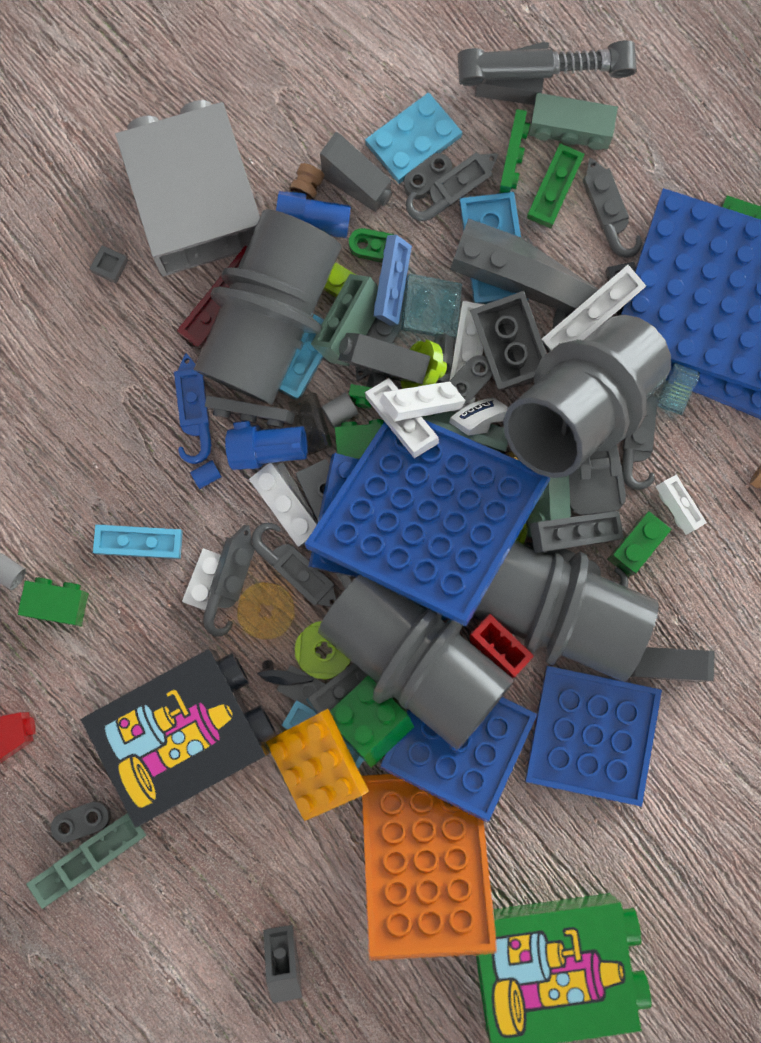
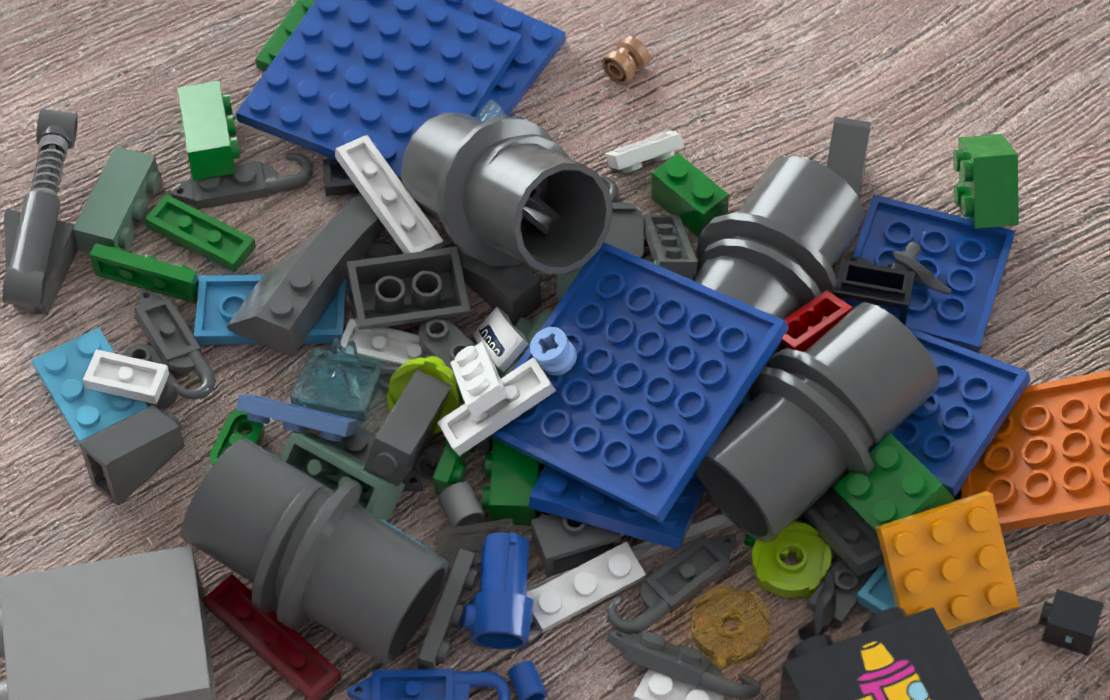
camera: 80 degrees left, 25 degrees down
(291, 860) = (1070, 621): none -> black brick
(307, 180) = (125, 515): medium nougat wheel -> none
(326, 216) = (164, 519): blue piece -> none
(412, 156) = (126, 376): none -> white plate
(448, 458) = (557, 360): none -> light blue wheel
(548, 694) = (875, 284): none -> black window
(587, 727) = (922, 274): none -> dark grey bar
(646, 170) = (208, 130): none -> brick
(676, 780) = (987, 181): none -> green brick

